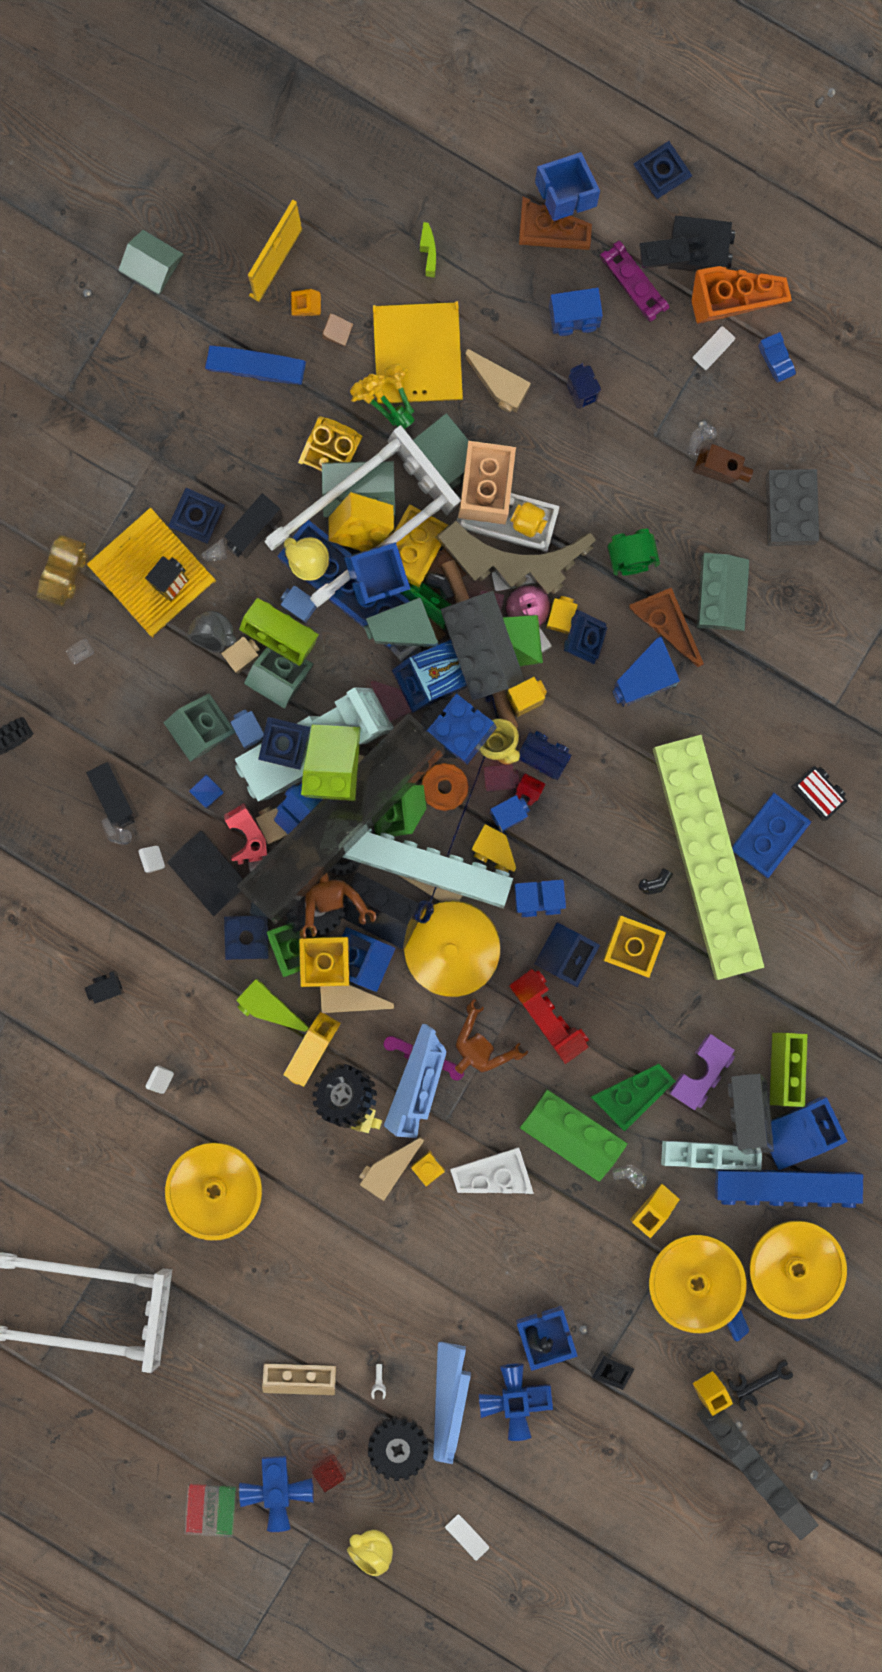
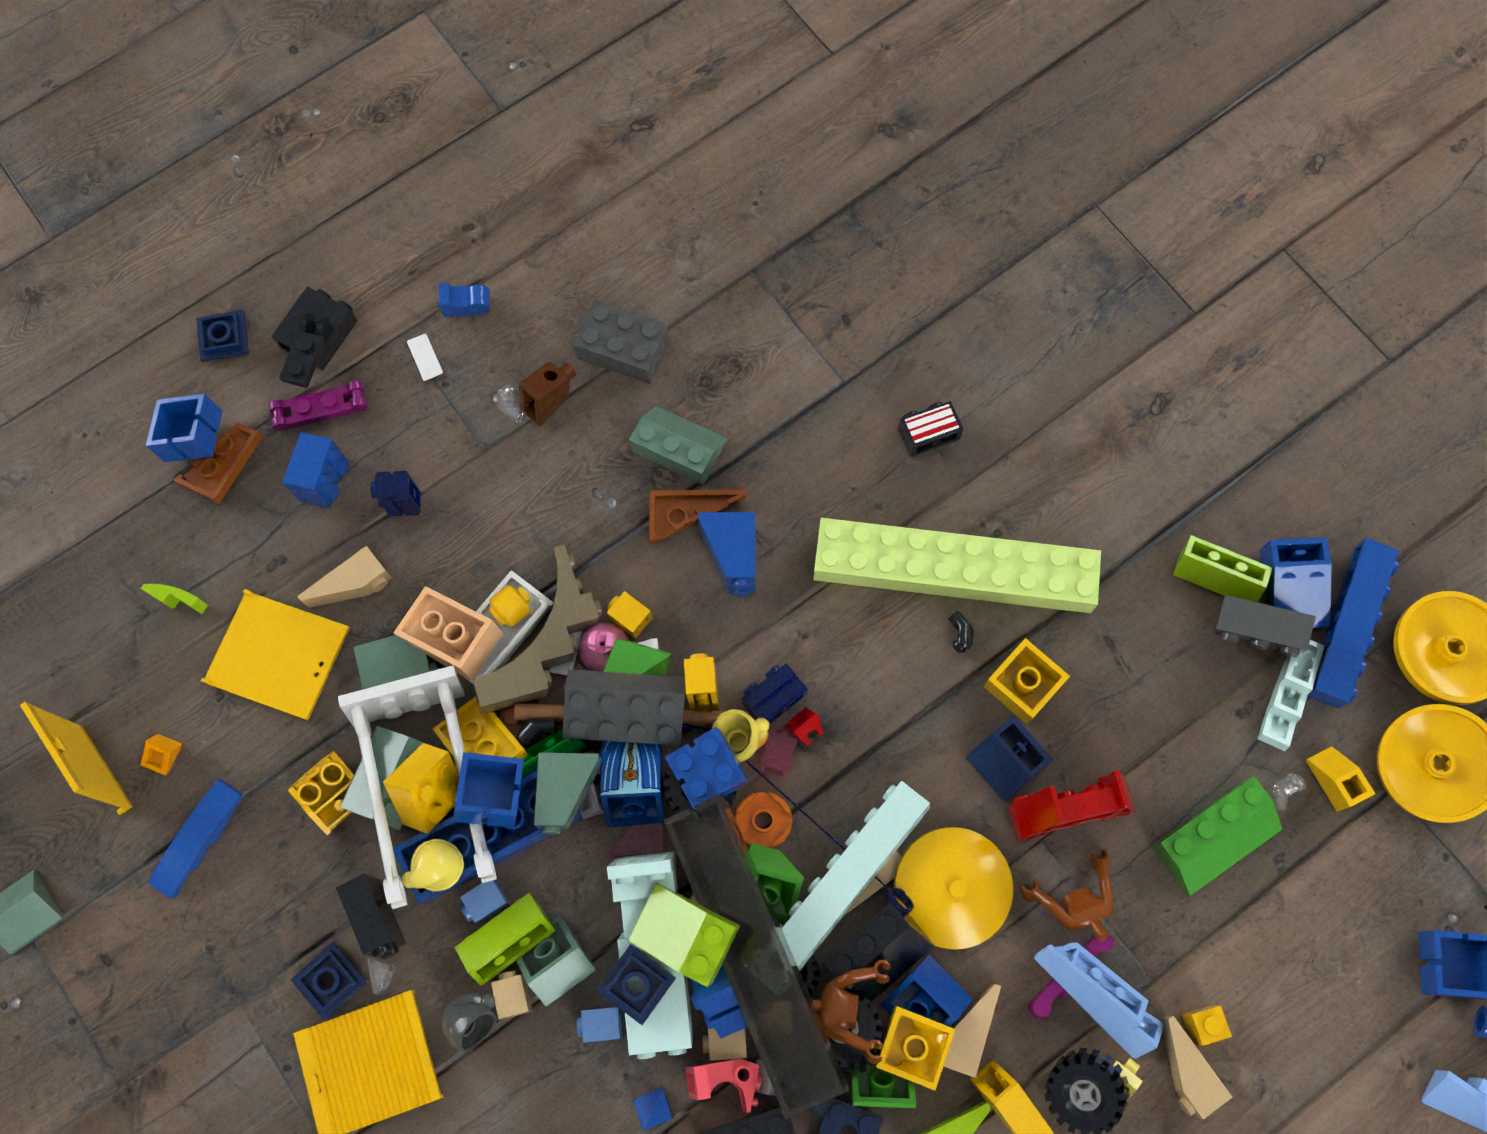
camera: 65 degrees left, 15 degrees down
(167, 577) = (379, 1046): black brick -> none
(199, 727) = (573, 1085): sand green slope -> none
(337, 330) = (207, 731): medium nougat slope -> none
(373, 385) = (279, 708): plant -> none
(493, 1174) = (1237, 945): white wing -> none
(495, 847) = (855, 790): yellow slope -> none
(509, 813) = (825, 755): blue brick -> none
(535, 1343) = (1473, 974): black arm -> none
(540, 896) = (932, 761): blue piece -> none
(577, 643) = (663, 597): dark blue piece -> none
(633, 552) = (595, 512): green brick -> none
(634, 1095) = (1194, 749): green wing -> none
(716, 1056) = (1182, 642): medium lavender arch -> none
(728, 293) = (378, 316): orange wedge -> none
(770, 835) = (955, 494): blue tile -> none

